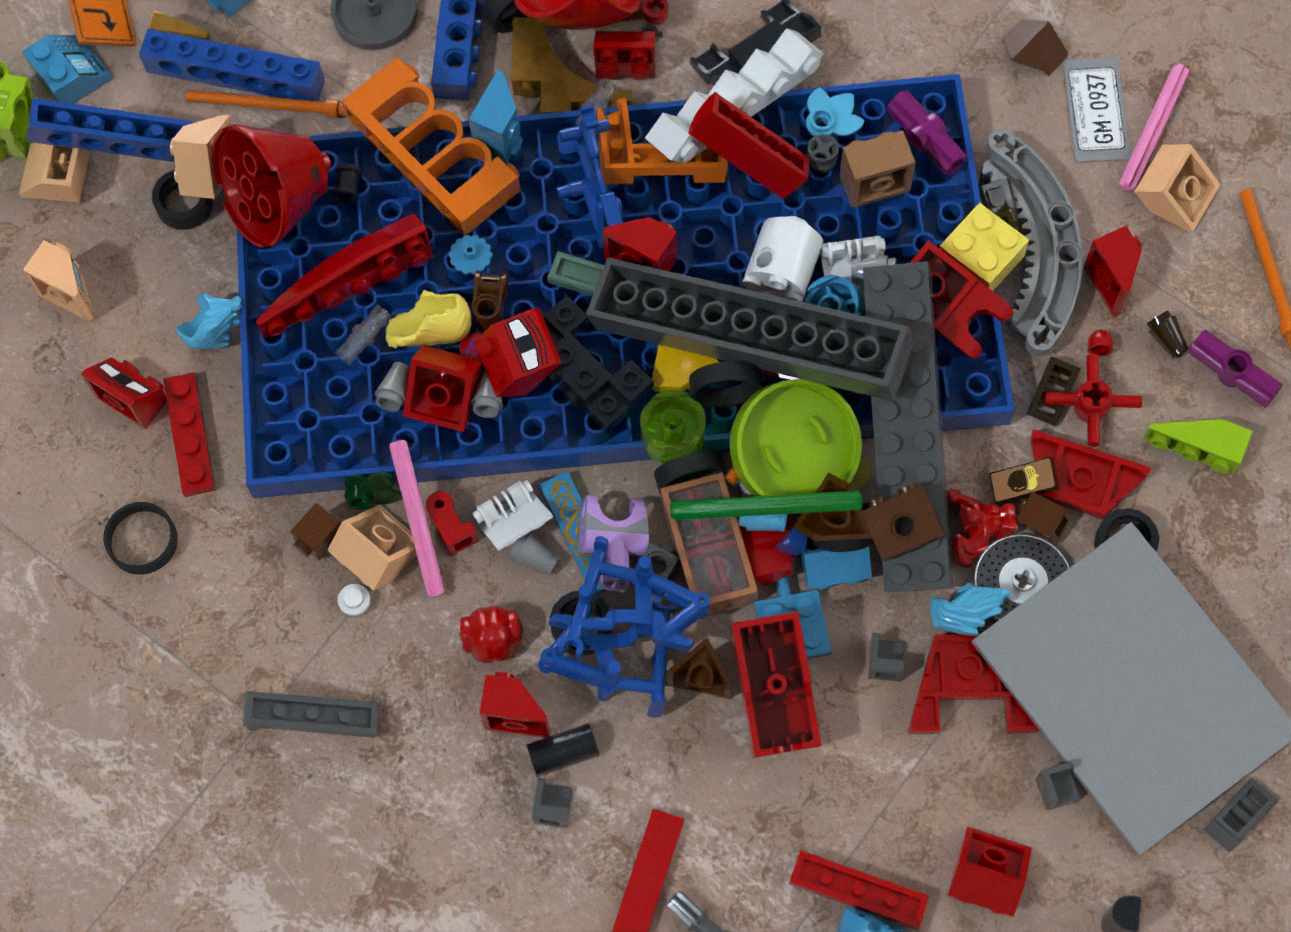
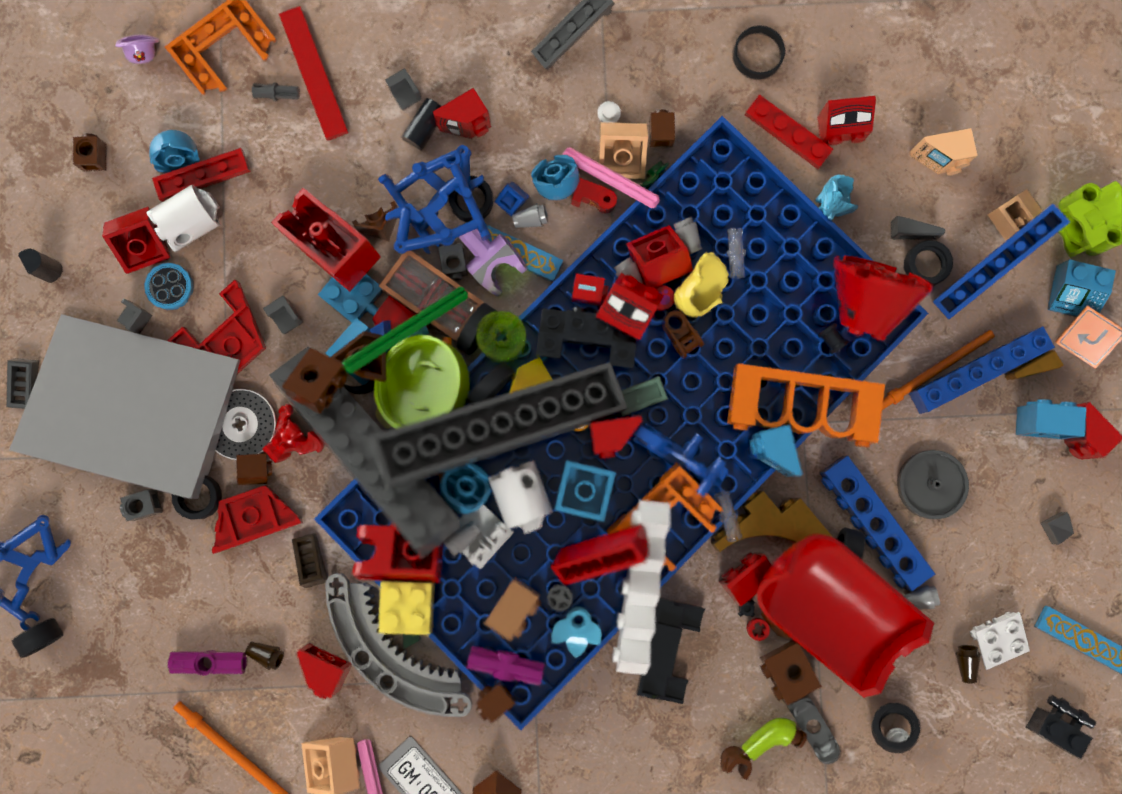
camera: 135 degrees right, 15 degrees up
(170, 244) = (909, 229): none -> dark grey slope
(193, 157) = (946, 284): light nougat slope -> none
(350, 273) = (778, 284): red wedge -> none
(470, 254) = (719, 356): dark azure piece -> none
(471, 566) = (556, 178): none -> dark azure cylinder
(491, 633) = (514, 151): red hair -> none
(514, 518) = (558, 225): white hinge -> none
(535, 593) = (511, 198): none -> blue slope
(543, 409) = (589, 290): none -> red brick
(715, 222) = (585, 491): none -> dark azure brick
(912, 842) = (185, 217): none -> white cylinder
(963, 108) = (494, 701): none -> reddish brown brick
(968, 609) = (254, 377): medium azure hair -> none
(992, 793) = (168, 286): none -> tile
(1000, 200) = (424, 653): dark brown slope -> none
(1022, 480) = (281, 485): tile -> none
(1083, 400) = (286, 573): red bar -> none
(1100, 343) = (302, 616): red hinge -> none
(1206, 441) = (189, 601): lime slope -> none
(1209, 568) = (150, 502): none -> dark grey brick

